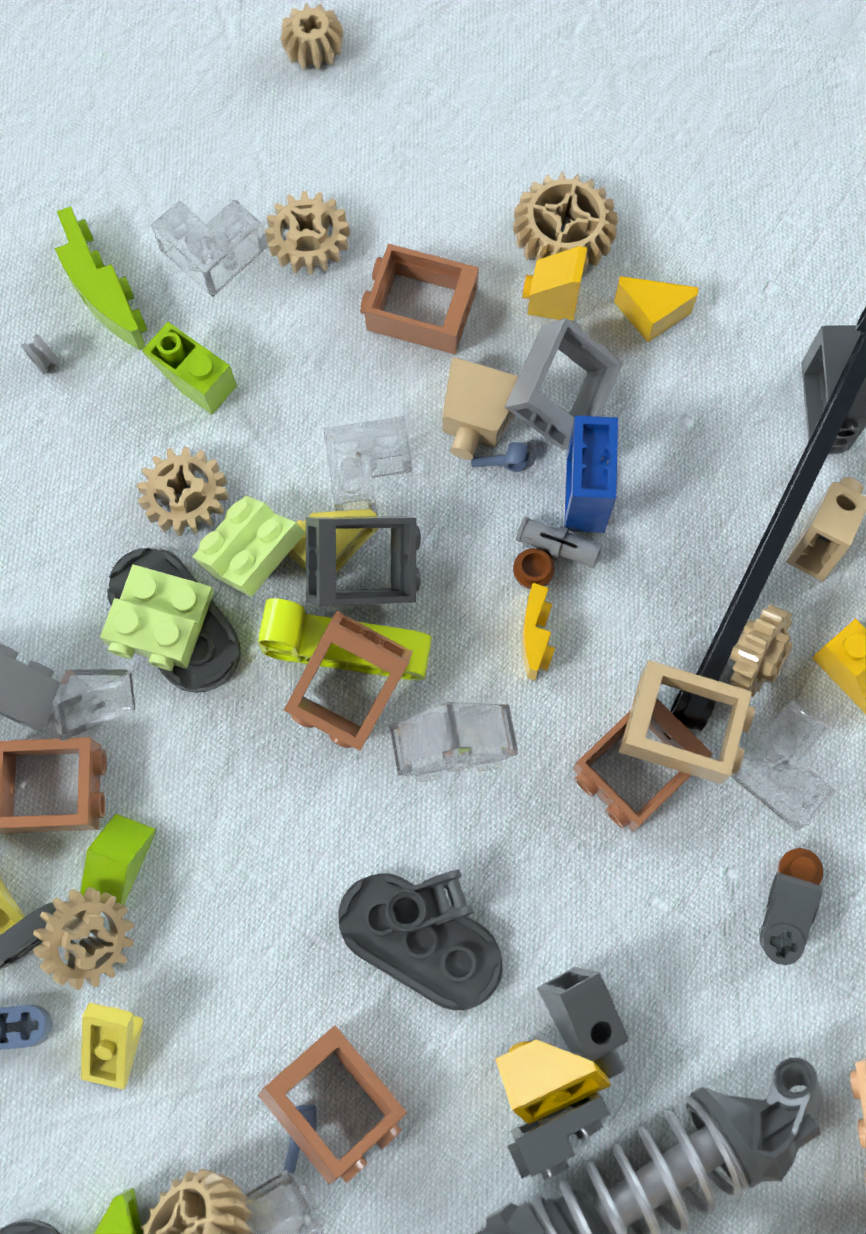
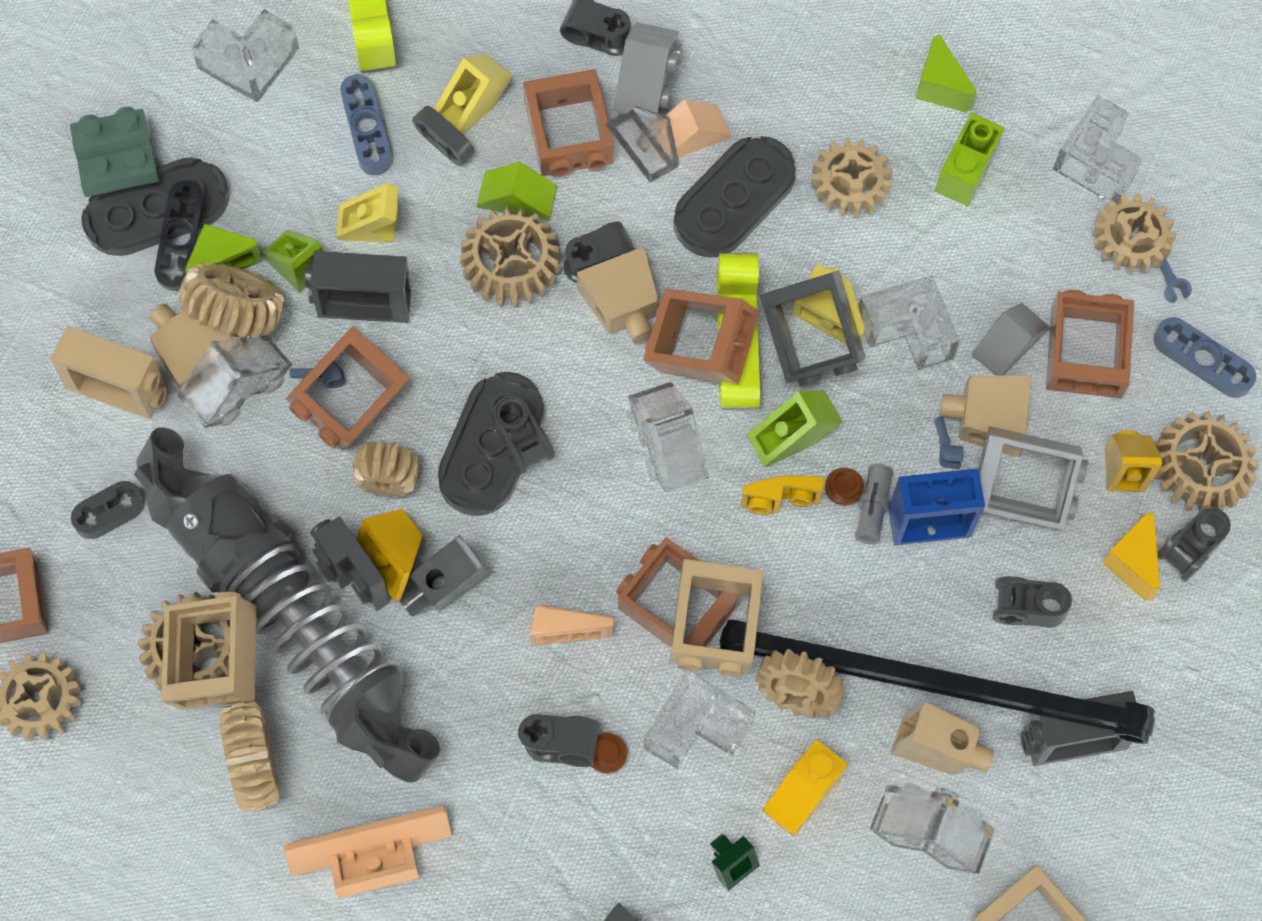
camera: 75 degrees right, 5 degrees down
(40, 354) = (956, 36): light grey bush -> none
(76, 921) = (464, 175): tan gear -> none
(79, 642) = (697, 126): none -> light nougat slope
(86, 375) = (944, 79): none -> lime slope
(98, 284) = (1032, 67): lime slope -> none
(142, 1146) = (290, 256): none -> lime slope
(157, 618) = (729, 178): yellowish green plate -> none
(170, 856) = (492, 239): none -> tan gear
(205, 1072) = (359, 286): none -> dark grey window
(212, 772) = (596, 248): none -> dark grey piece
(247, 545) = (810, 235): yellowish green plate -> none
(271, 760) = (621, 294): none -> tan torso
(368, 213) = (1173, 281): none -> sand blue hand
(399, 373) = (1009, 339): none -> light grey slope
(442, 1072) = (385, 469): none -> tan gear
(444, 217) = (1188, 333): none -> sand blue beam
(462, 605) = (794, 426): none -> lime slope
(652, 255) = (1191, 546): none -> dark grey piece
(653, 898) = (565, 625): none -> light nougat slope
(688, 417) = (1027, 602): none -> dark grey piece

